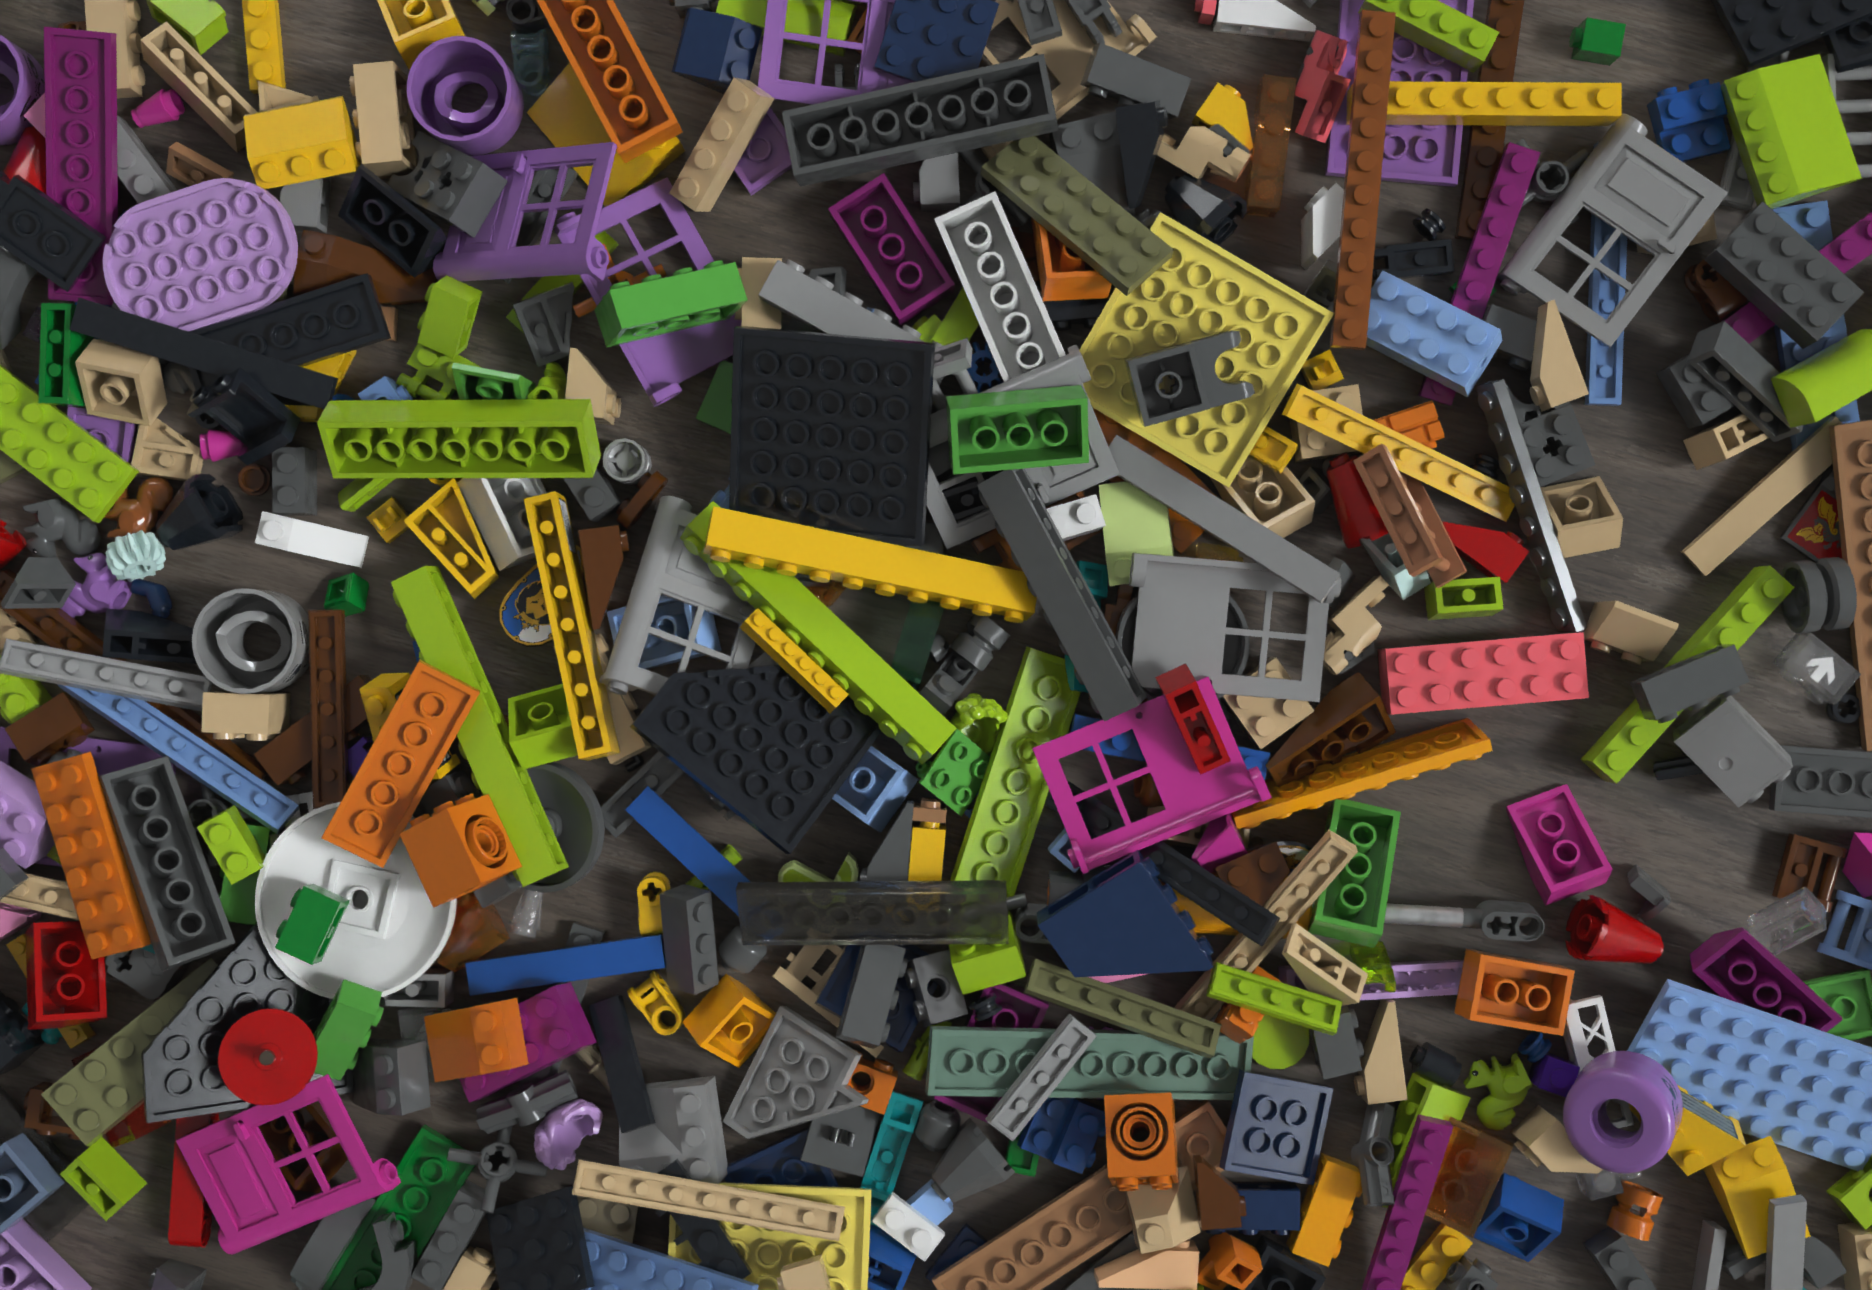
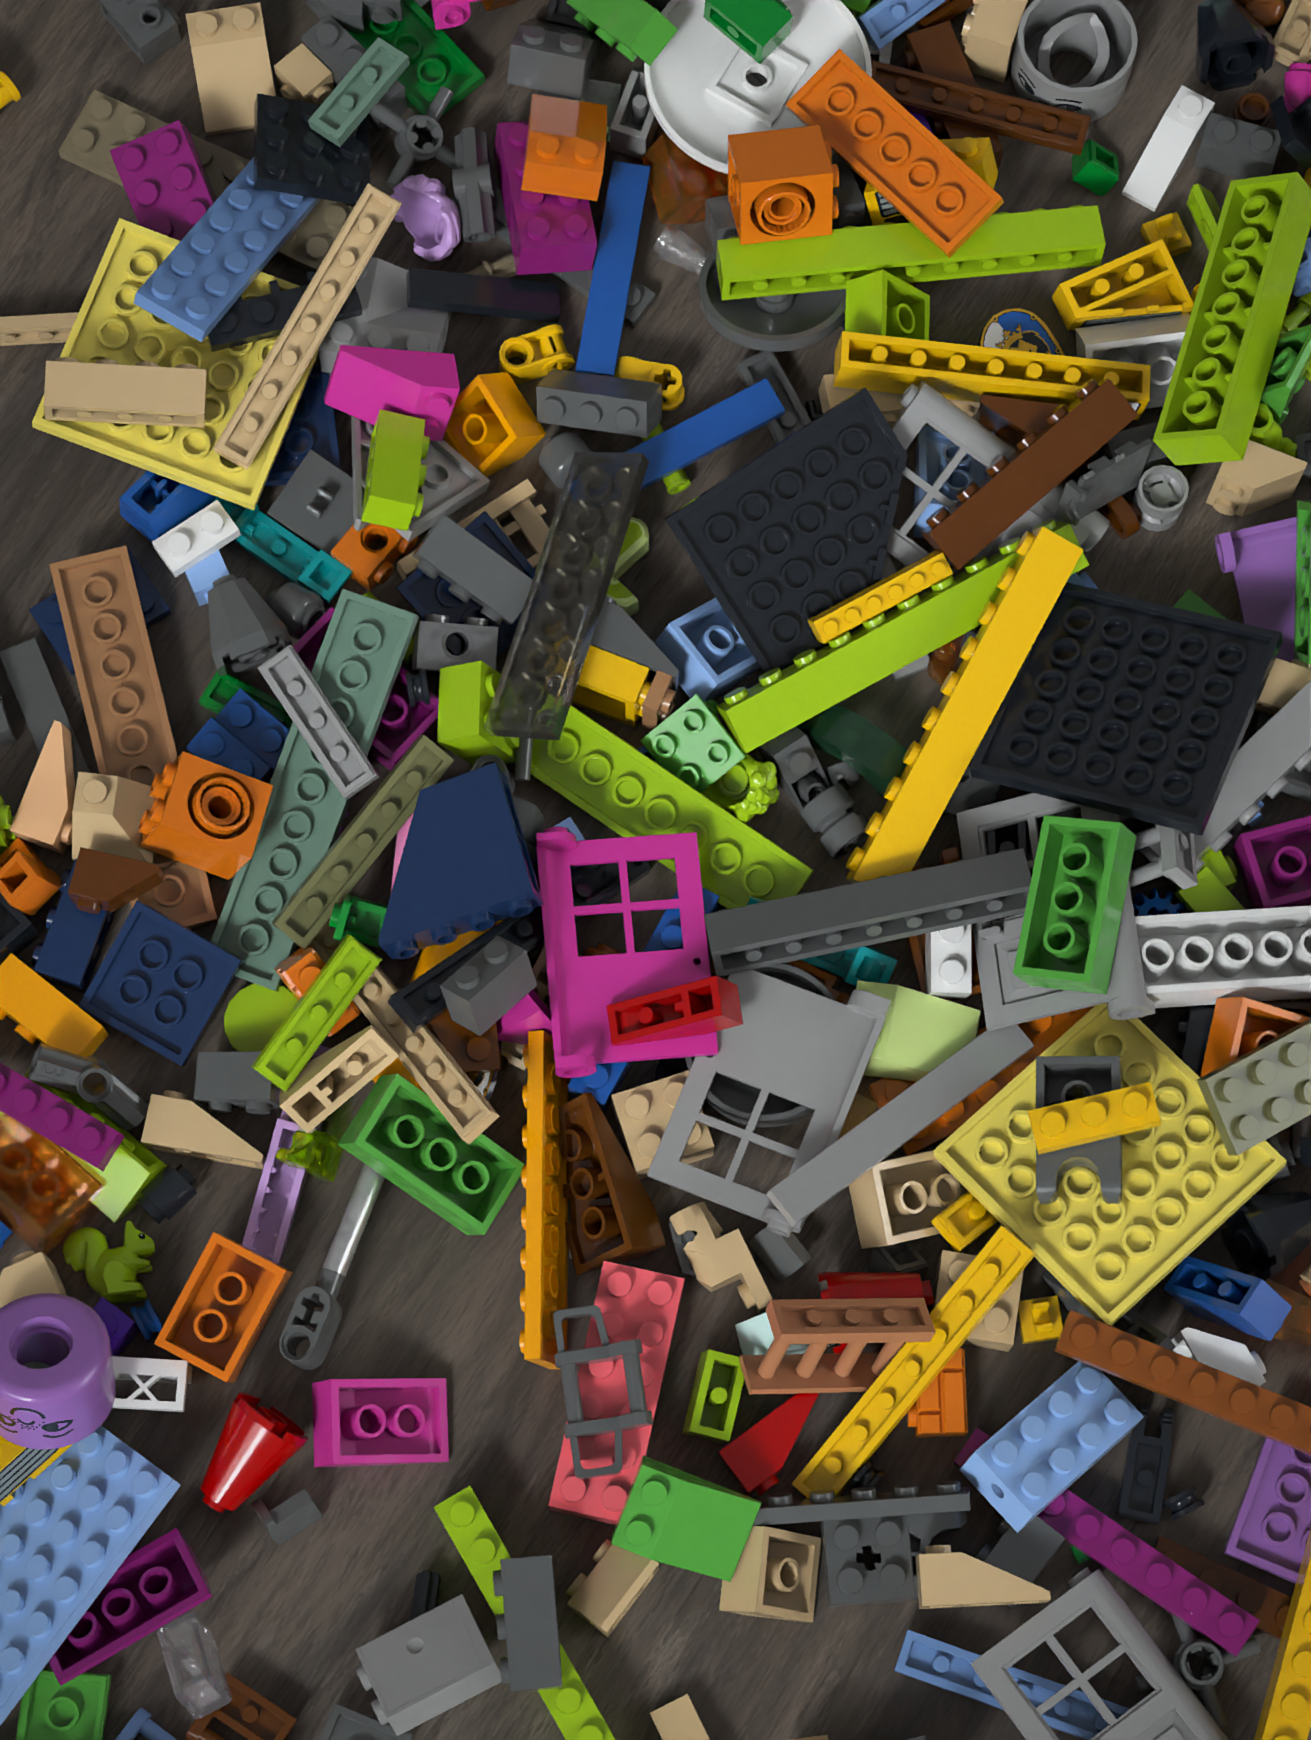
camera: 105 degrees right, 15 degrees down
(479, 1227) = (359, 92): none -> sand green plate
(639, 508) = (1104, 482): none -> dark grey piece
(654, 570) = (1028, 473): none -> reddish brown brick
(734, 1107) = (395, 381): none -> dark pink slope
(808, 1086) = (395, 470): none -> lime brick
(1185, 366) = (1094, 1118): none -> yellow plate
(1186, 992) = (359, 919): none -> green bracket
(1225, 871) = (488, 985): none -> dark grey brick
(1277, 226) = (1228, 1298): none -> blue brick
(1531, 694) = (568, 1363): none -> dark grey bar
(1575, 593) = (684, 1520): none -> bright green slope

